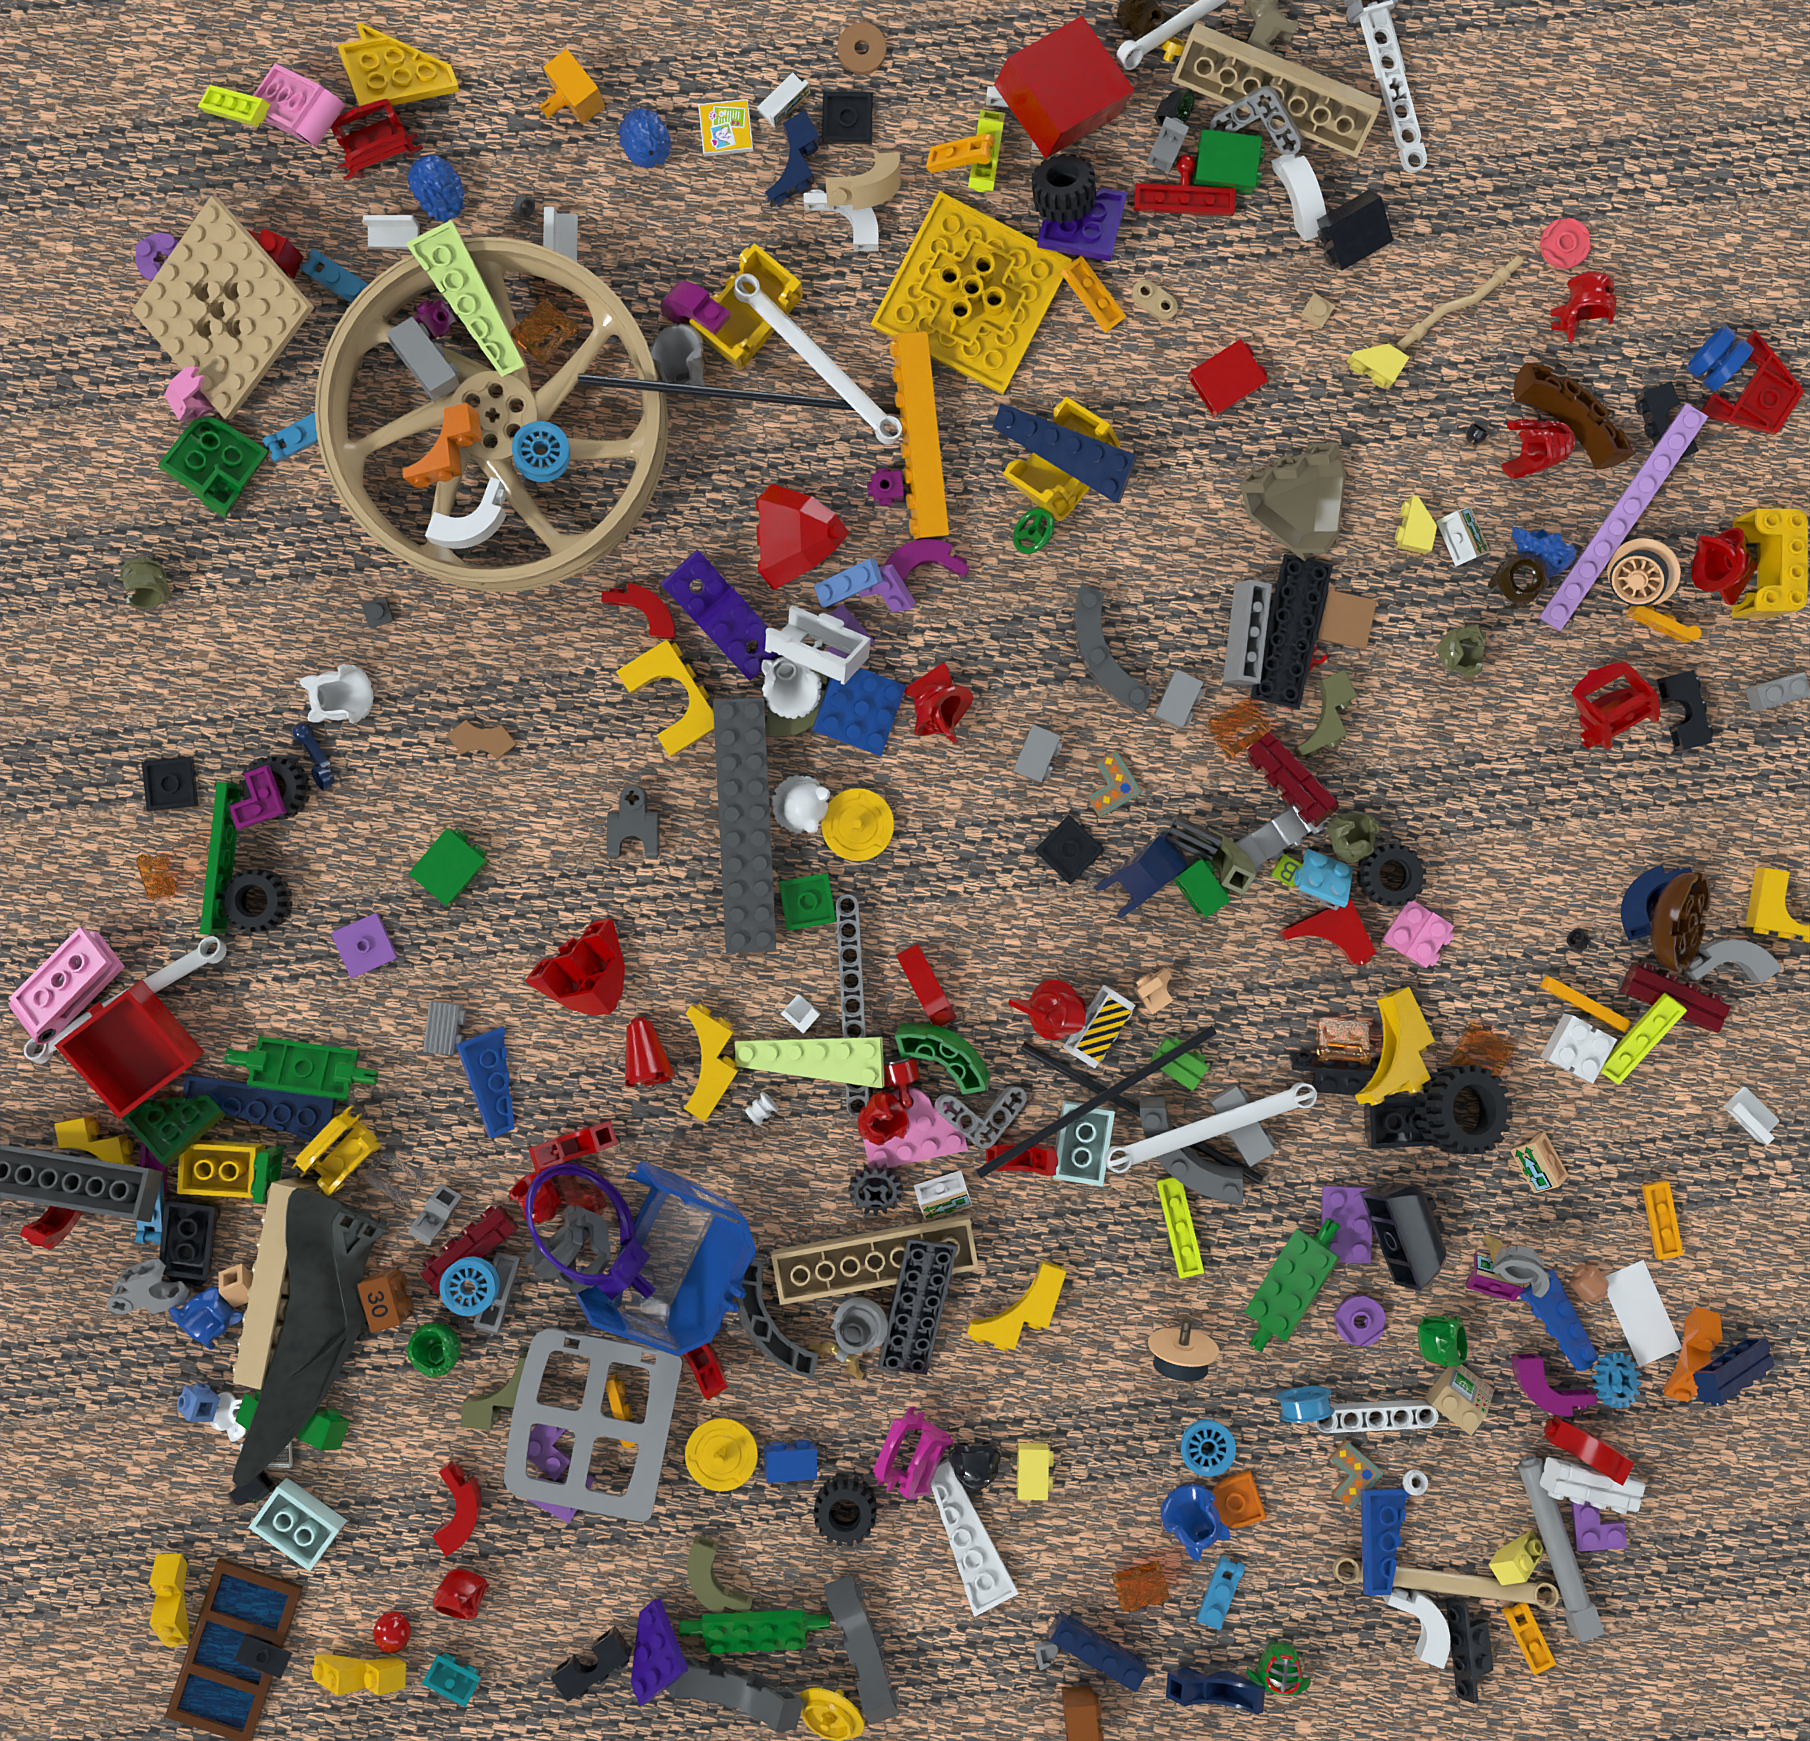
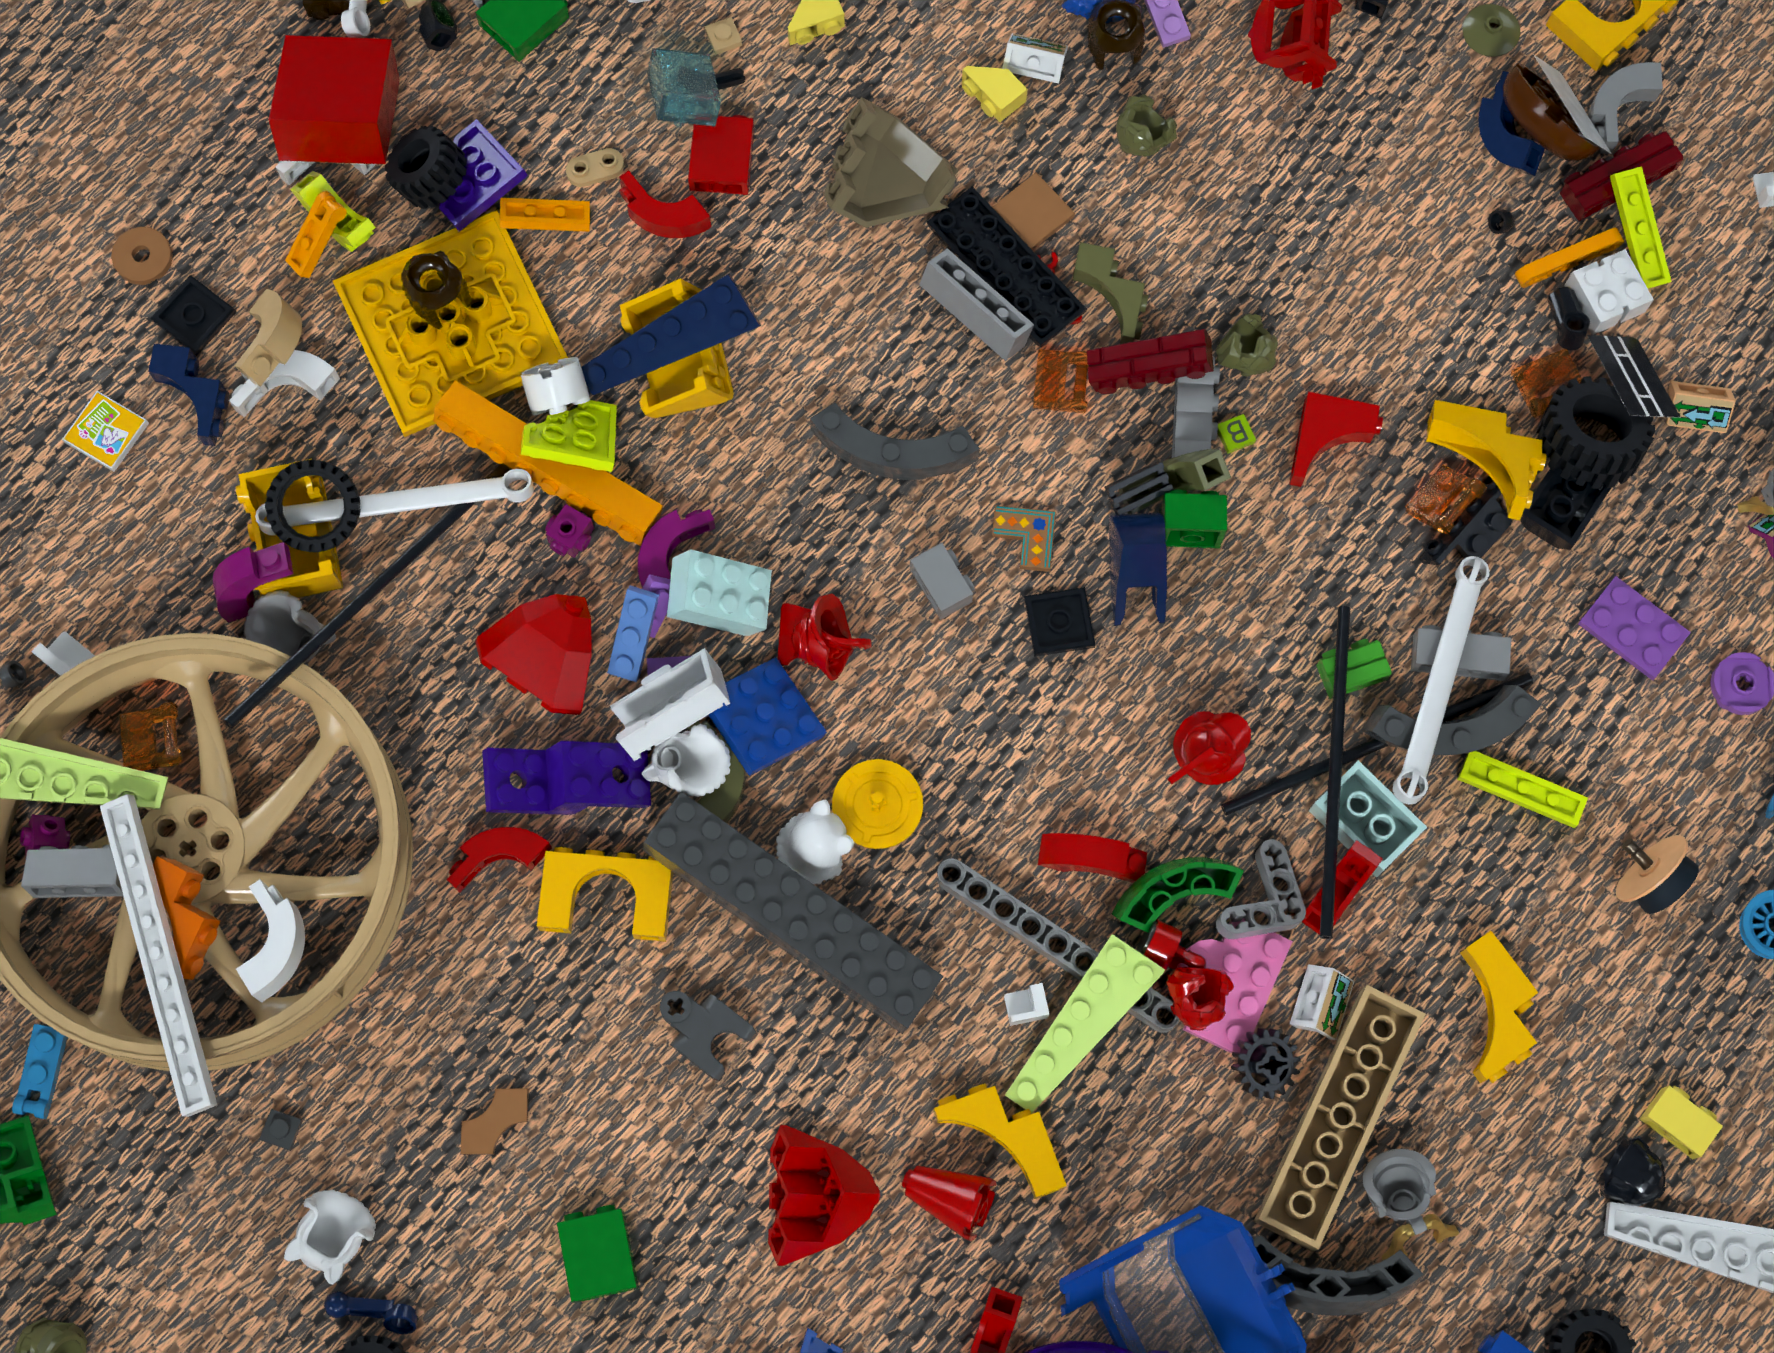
camera: 55 degrees left, 15 degrees down
(407, 454) = (158, 956): none -> white plate
(541, 473) = (246, 832): dark azure wheel -> none
(644, 132) = (44, 510): blue piece -> none
(741, 318) = (275, 507): none -> black tyre
(761, 1108) = (1095, 1119): white bush -> none
(784, 99) = (126, 358): white panel -> none
(807, 901) = (916, 913): green plate -> none
(916, 618) = (719, 593): none -> light aqua brick
(917, 1305) = (1420, 1106): black plate -> none
(924, 1461) = (1590, 1223): dark pink animal -> none
(950, 441) = (575, 436): none -> neon yellow plate
(975, 399) = (555, 386): none -> white brick
(976, 280) = (426, 301): none -> dark brown piece
(1035, 532) = (725, 426): green piece -> none
(1101, 1026) = (1255, 700): brick -> none
(1152, 379) = (661, 218): none -> red arch
(1154, 991) = (1262, 640): light nougat brick -> none
(1168, 144) = (463, 51): light grey brick -> none
(1178, 699) = (991, 413): light grey brick -> none
(1183, 197) = (522, 75): red plate -> none
(1255, 318) = (686, 86): none -> clear light blue piece
(1292, 1284) = (1660, 719): green plate -> none
(1324, 879) = (1271, 402): medium azure piece -> none
(1407, 1233) = (1683, 573): black hips -> none
(1412, 875) = (1321, 319): black tyre -> none
(1418, 934) = (1389, 358): bright pink plate -> none
(1525, 1107) = (1633, 376): none -> black sticker
(1539, 1033) = (1569, 318): none -> black piece
(1701, 930) = (1572, 104): none -> white sticker
(1712, 837) = (1488, 40): none -> olive dish

